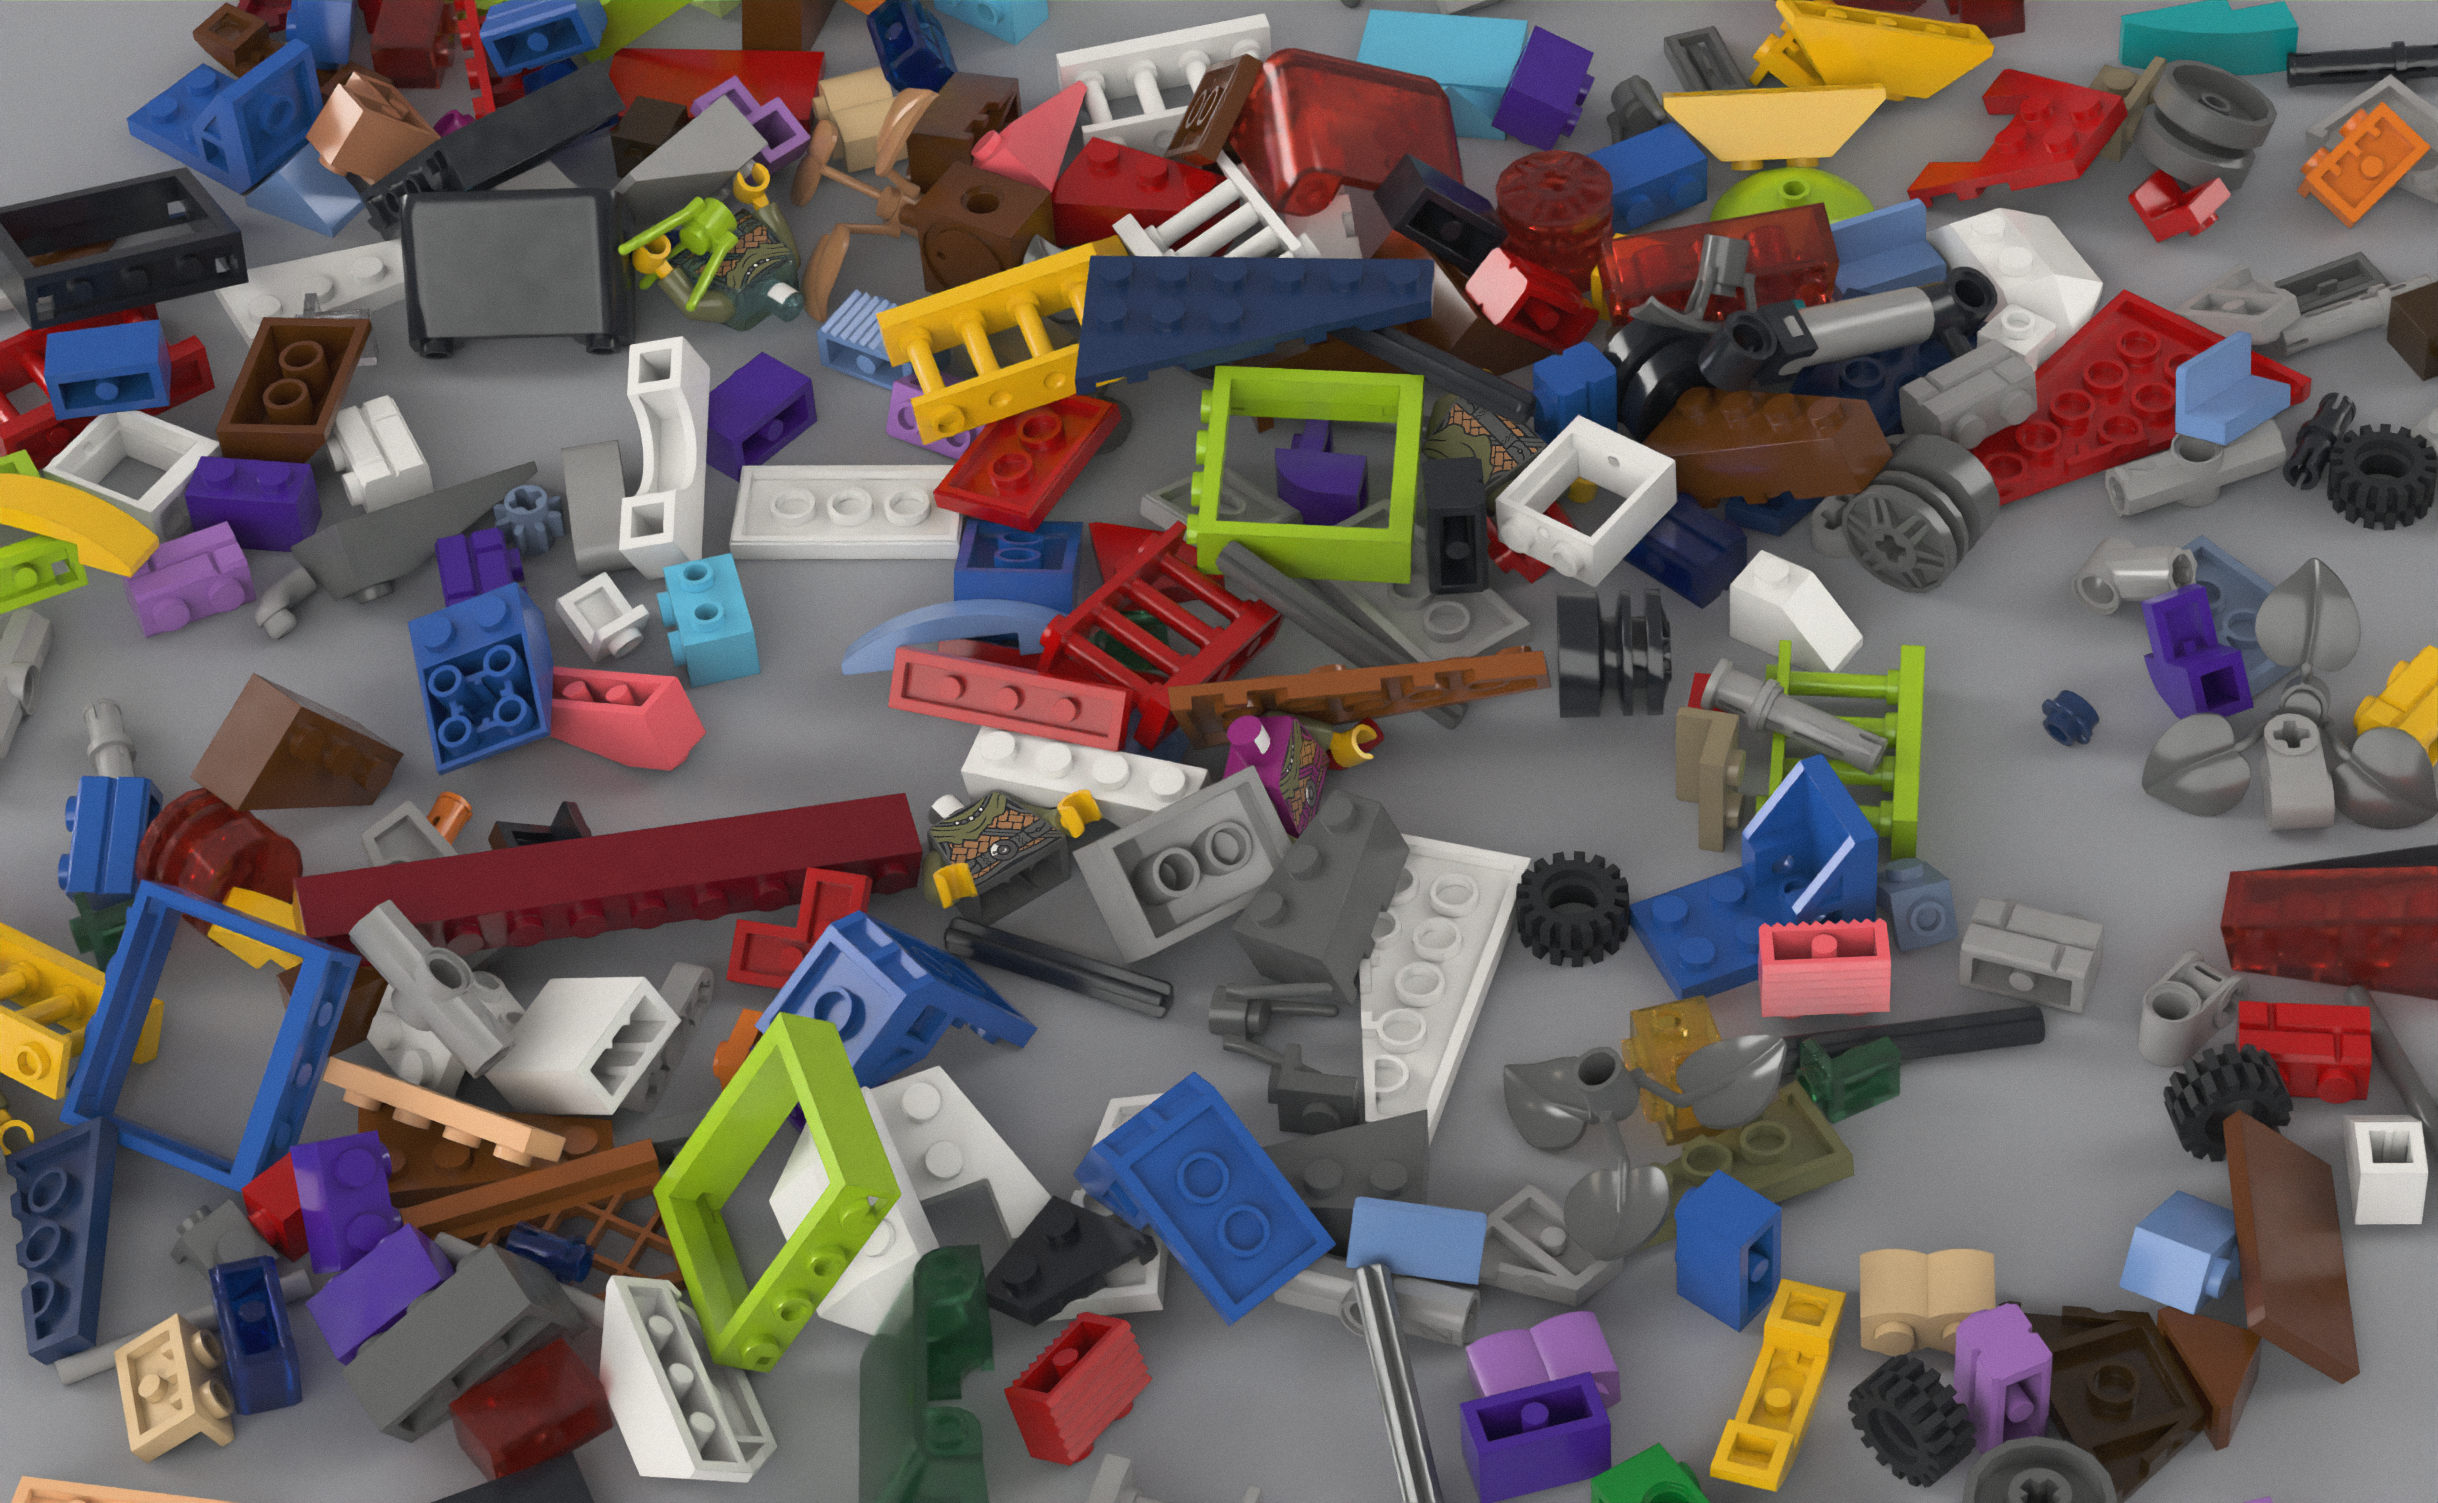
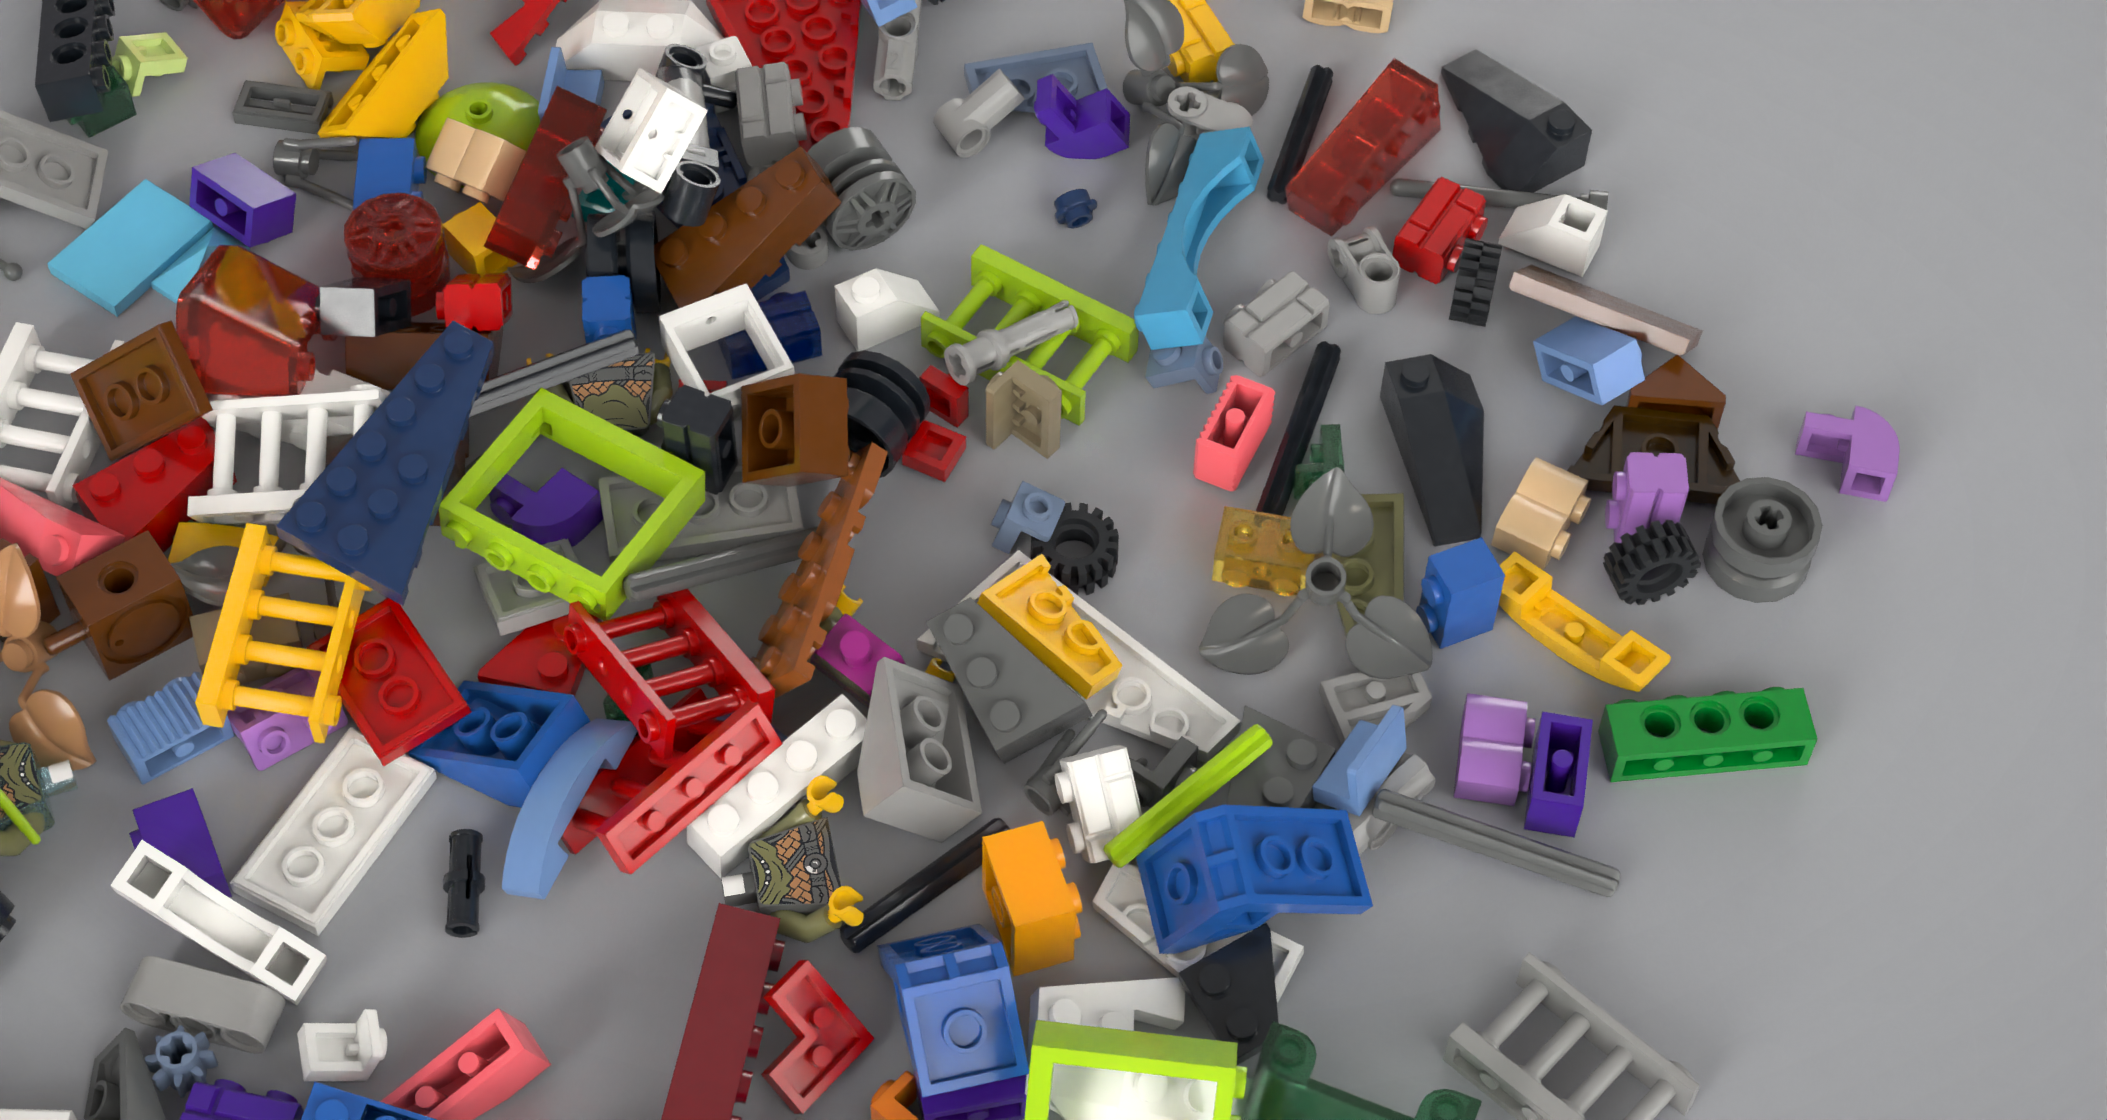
camera: 70 degrees left, 10 degrees up
(710, 621) = (400, 972): medium azure brick -> none
(840, 622) = (464, 883): none -> black pin
(1064, 1032) = (1030, 897): none -> light orange brick
(1078, 1388) = (1371, 1031): red brick -> none
(1227, 1038) = (1100, 798): none -> white brick
(1276, 1100) = (1187, 796): none -> lime axle
(1429, 909) = (1050, 628): none -> yellow wing
(1503, 579) = (794, 430): none -> reddish brown brick
(1574, 838) = (1030, 512): none -> sand blue bracket
(1624, 741) = (934, 450): none -> red plate
(1717, 198) = (474, 160): none -> tan brick
(1787, 264) = (655, 135): none -> white window
(1801, 860) = (1144, 428): blue bracket -> none
(1987, 1159) = (1440, 441): none -> black wedge
(1988, 828) = (1217, 178): none -> dark azure arch

